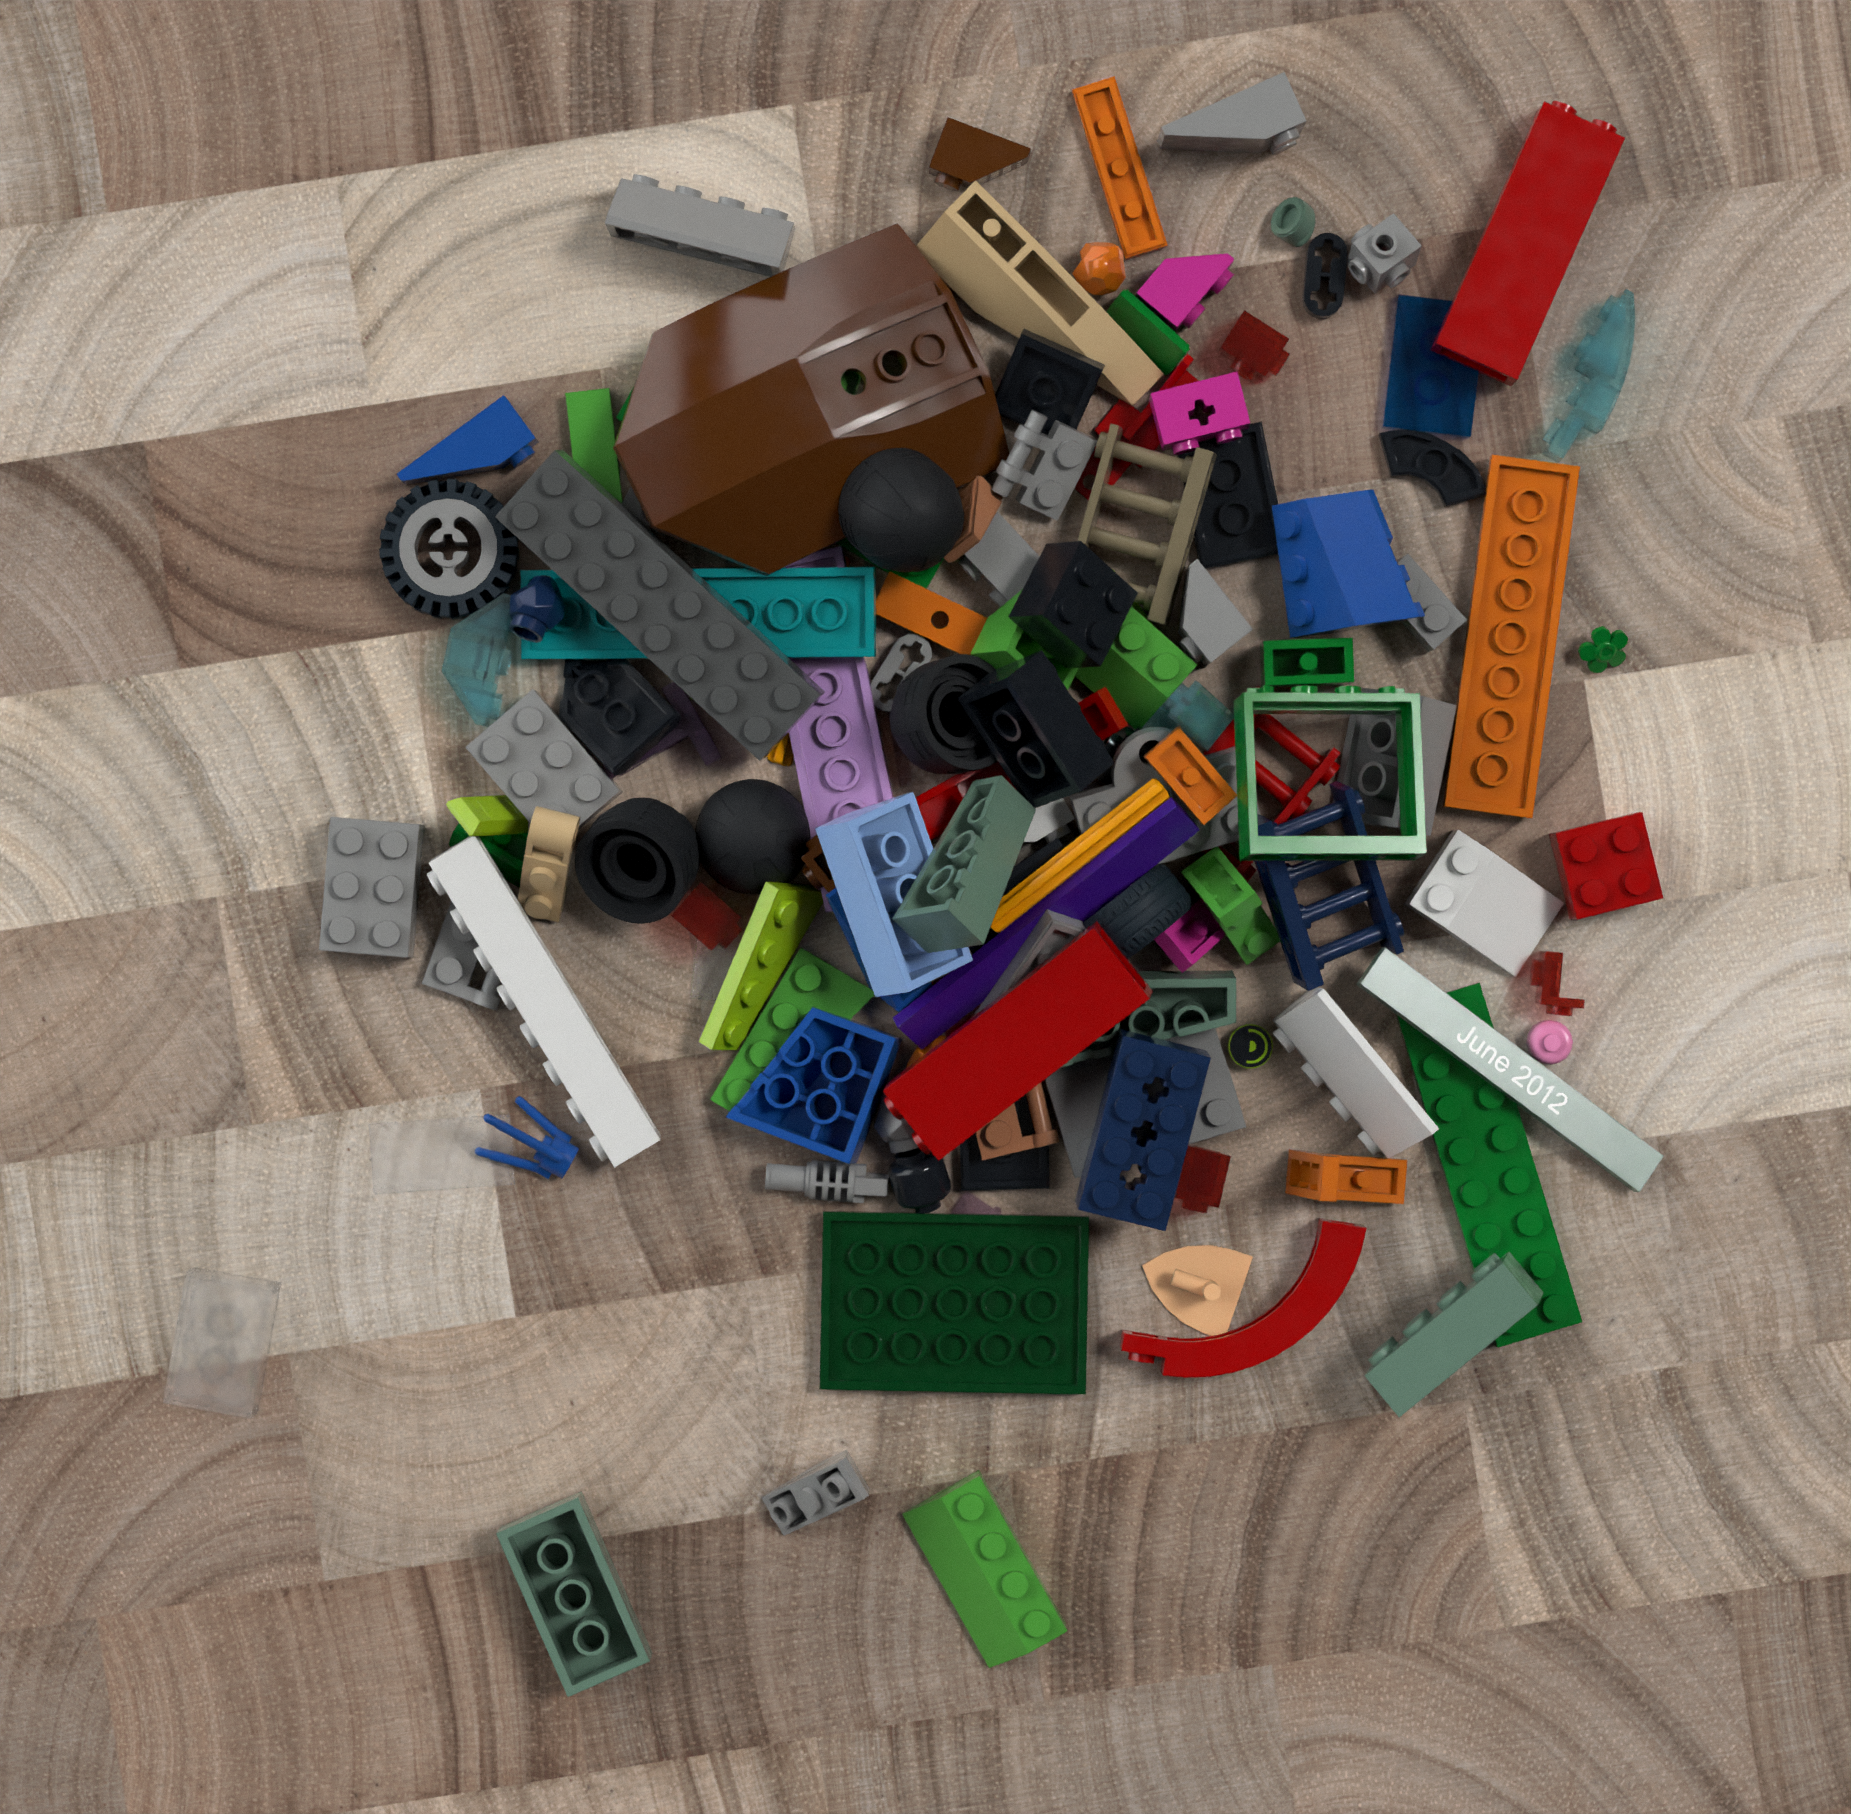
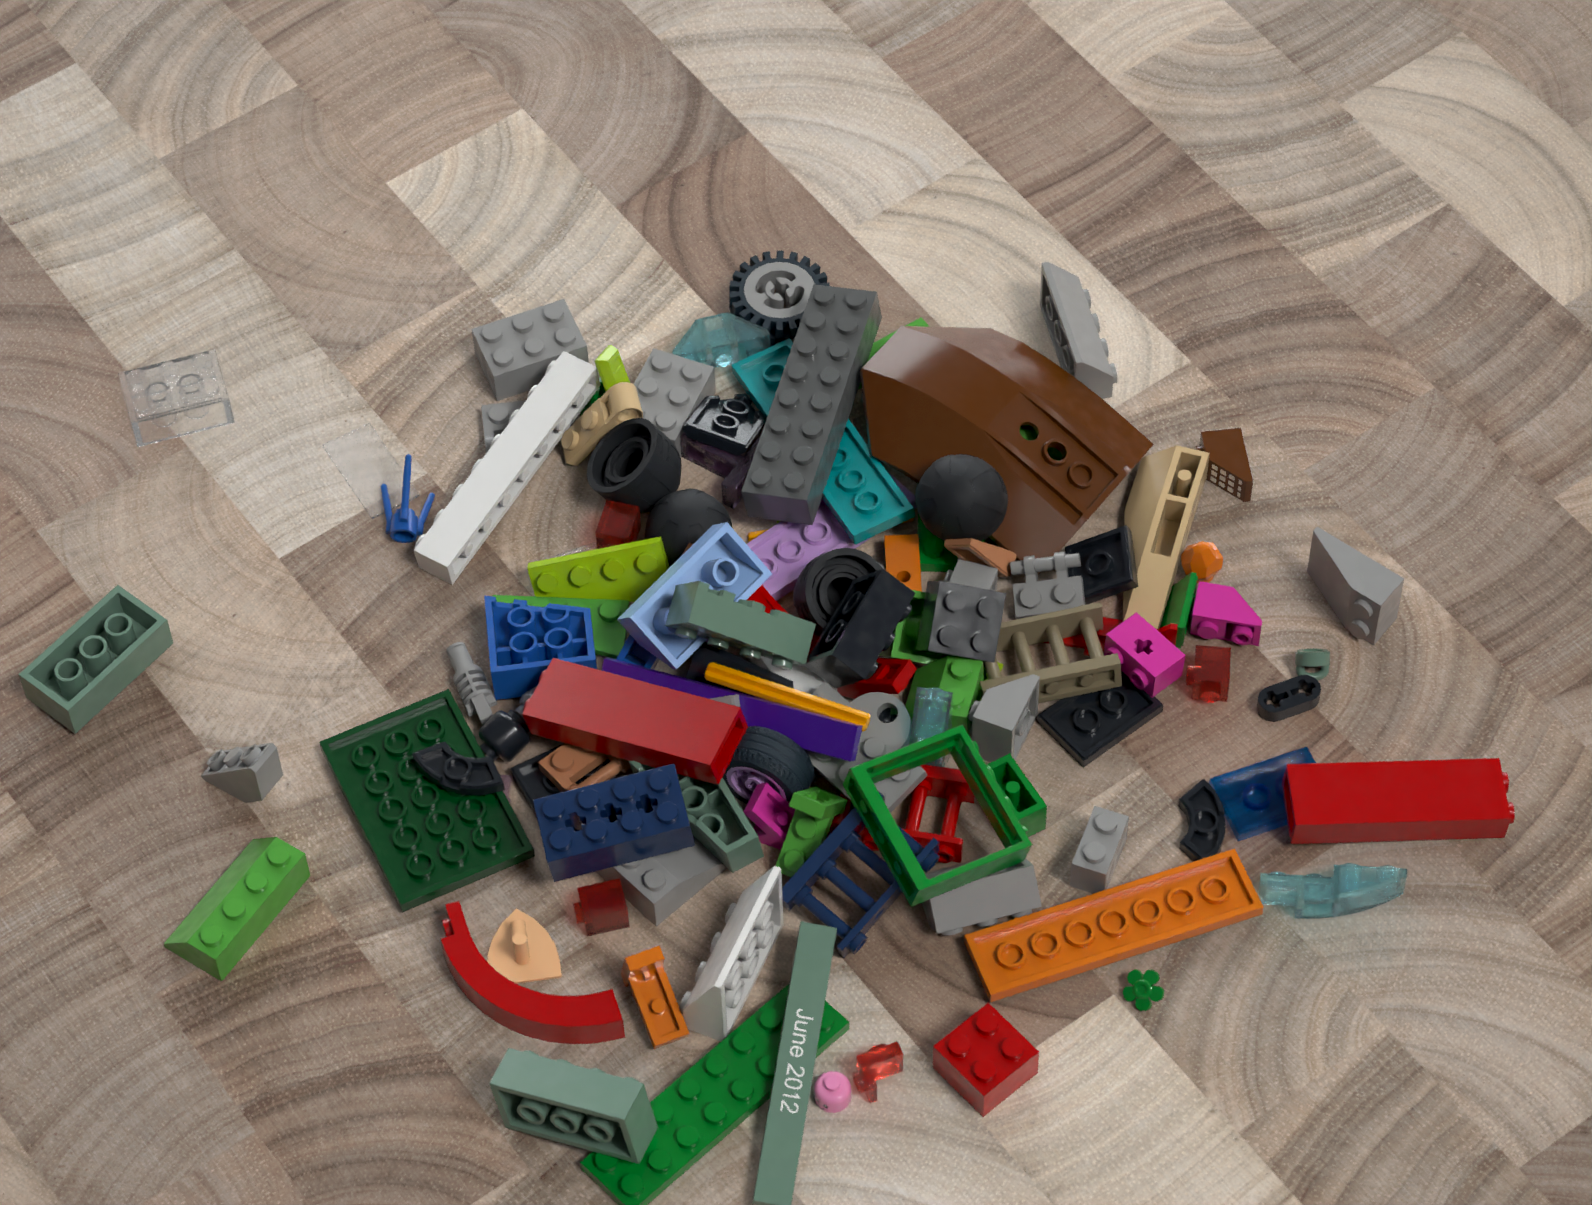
camera: 65 degrees right, 35 degrees down
(480, 445) = (855, 275): blue slope -> none
(536, 608) = (768, 346): dark blue rock -> none
(948, 1256) = (458, 772): none -> black tile
(1119, 168) = (1277, 550): orange tile -> none
(1190, 775) = (885, 730): orange plate -> none
(1250, 1046) = (715, 899): black tile -> none
(1339, 565) = (1091, 776): blue wedge -> none
(1383, 254) = (1326, 716): light grey brick -> none
(1484, 902) = (910, 992): white slope -> none

